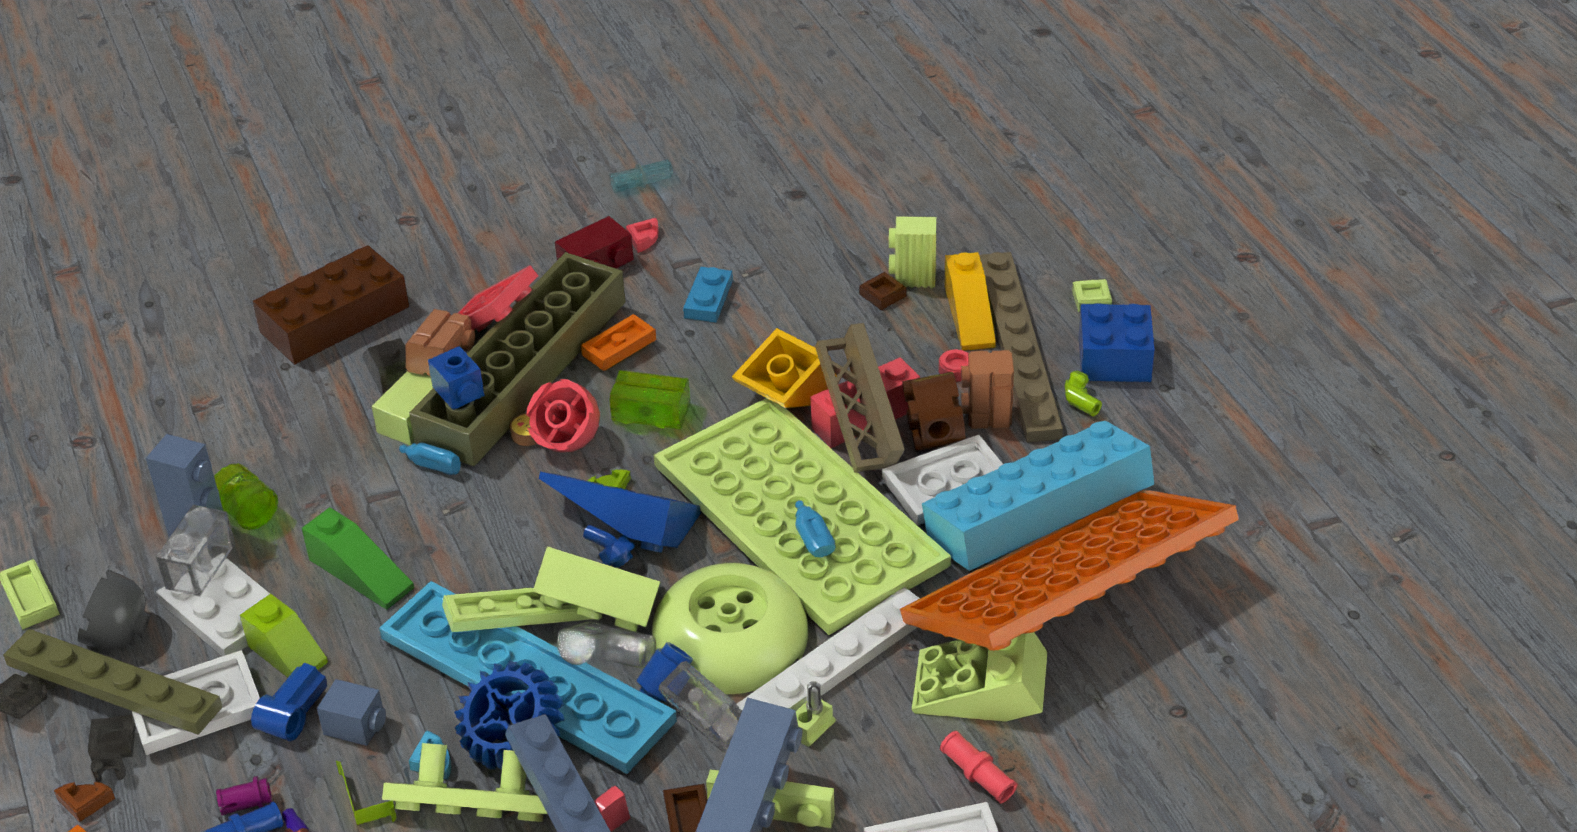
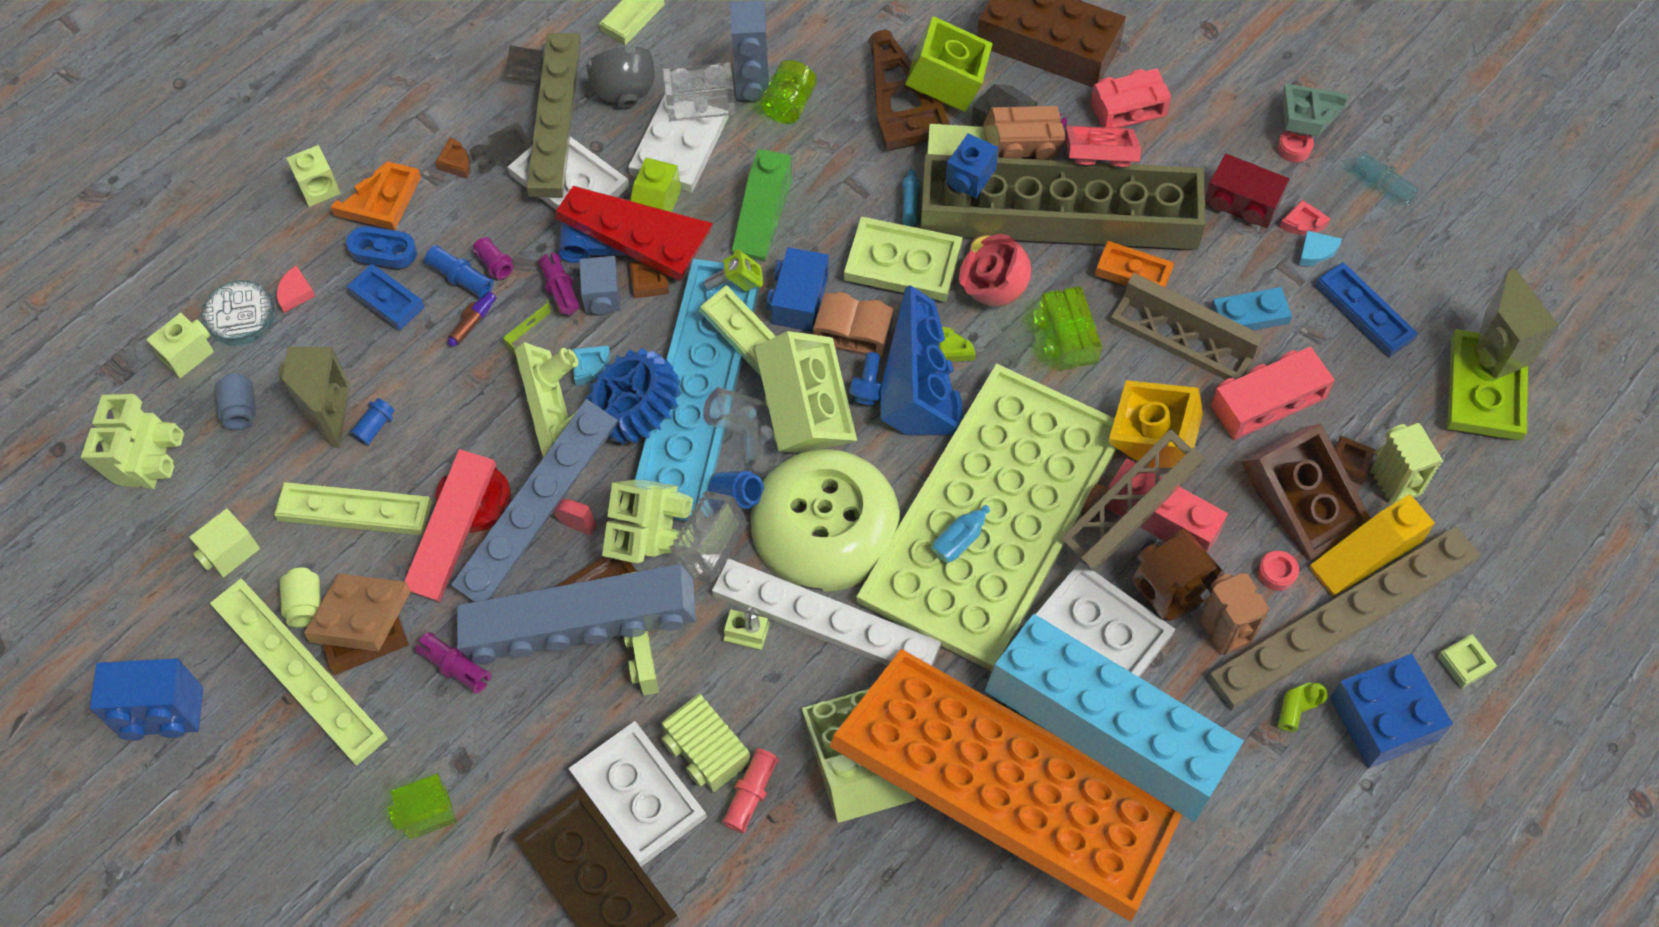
camera: 65 degrees right, 20 degrees up
(316, 652) = (641, 231): none -> red wing
(317, 371) = (949, 64): none -> lime brick
(321, 748) = (558, 284): none -> magenta axle
(347, 439) = (903, 126): none -> reddish brown plate
(370, 673) = (647, 280): none -> dark orange tile
(432, 584) = (739, 270): none -> lime piece
(445, 281) = (1130, 99): none -> coral brick
(473, 560) = (799, 289): none -> blue brick
(492, 483) = (901, 256): none -> yellowish green plate
(543, 188) = (1310, 109): none -> sand green wing
(544, 525) = (854, 323): none -> nougat brick
(567, 213) = (1295, 147): none -> coral tile
(658, 746) = (643, 519): none -> yellowish green hips
(676, 236) = (1318, 248): none -> medium azure tile
(694, 329) = (1190, 323): none -> dark tan fence
(752, 232) = (1366, 309): none -> blue tile
(795, 300) = (1271, 392): none -> coral brick
(833, 437) = (1095, 495): none -> reddish brown tile
(837, 146) = (1513, 327): none -> olive slope
(867, 193) = (1479, 400): none -> lime plate
(898, 316) = (1307, 489): none -> reddish brown slope
(914, 782) = (705, 743): none -> yellowish green brick

